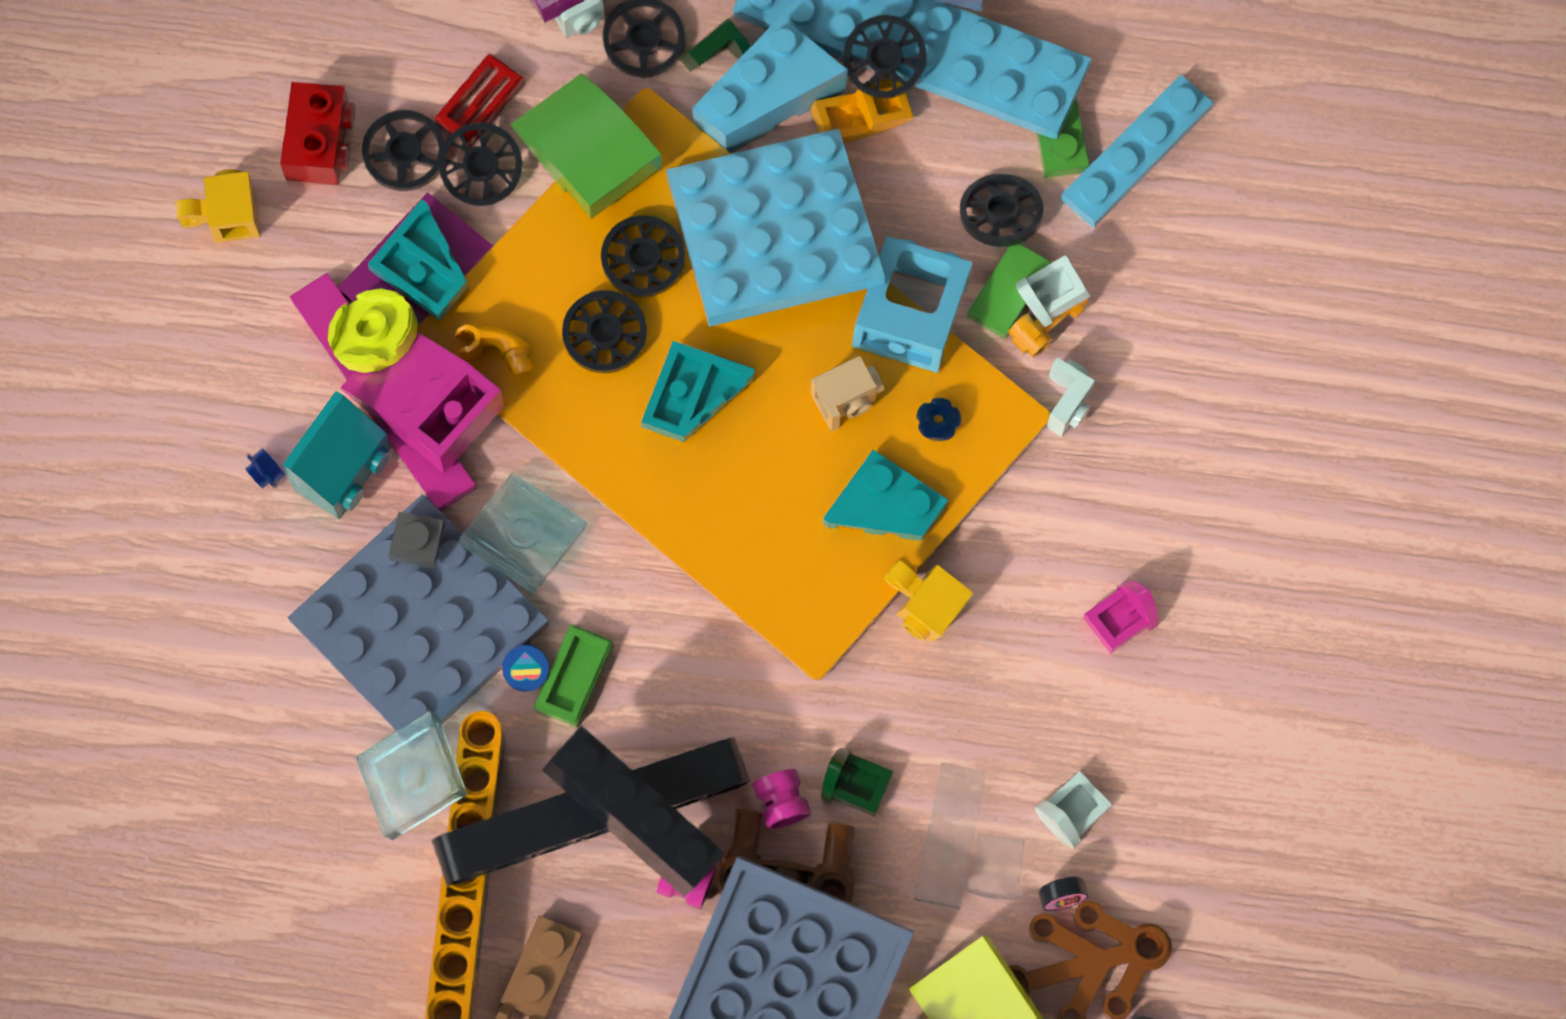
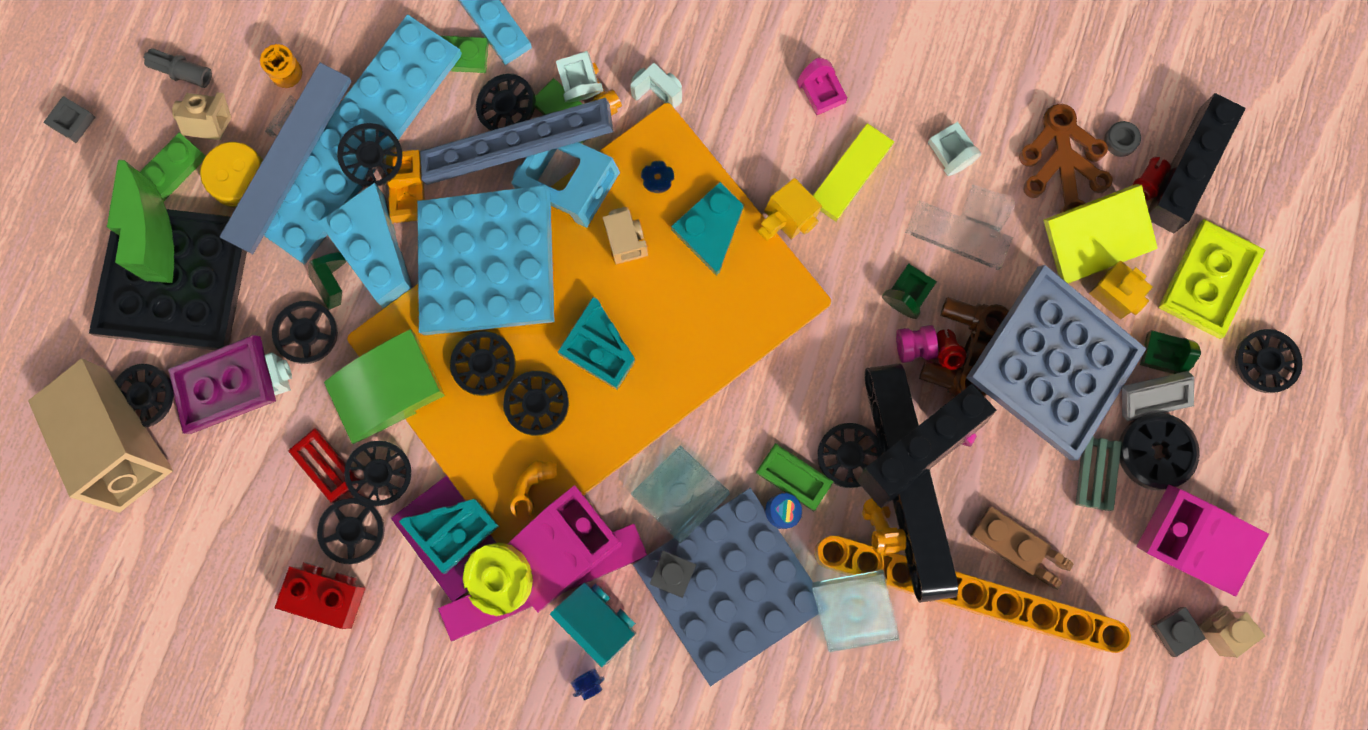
camera: 75 degrees left, 5 degrees up
(227, 208) = (364, 678): yellow brick -> none
(507, 792) = (884, 539): none -> light orange bar
(619, 736) = (849, 454): none -> black wheel
(774, 841) = (950, 352): none -> red pin
(944, 231) = (516, 141): none -> sand blue tile
(1008, 676) = (852, 171): none -> neon yellow tile
(1063, 893) = (1016, 166): black tile -> none

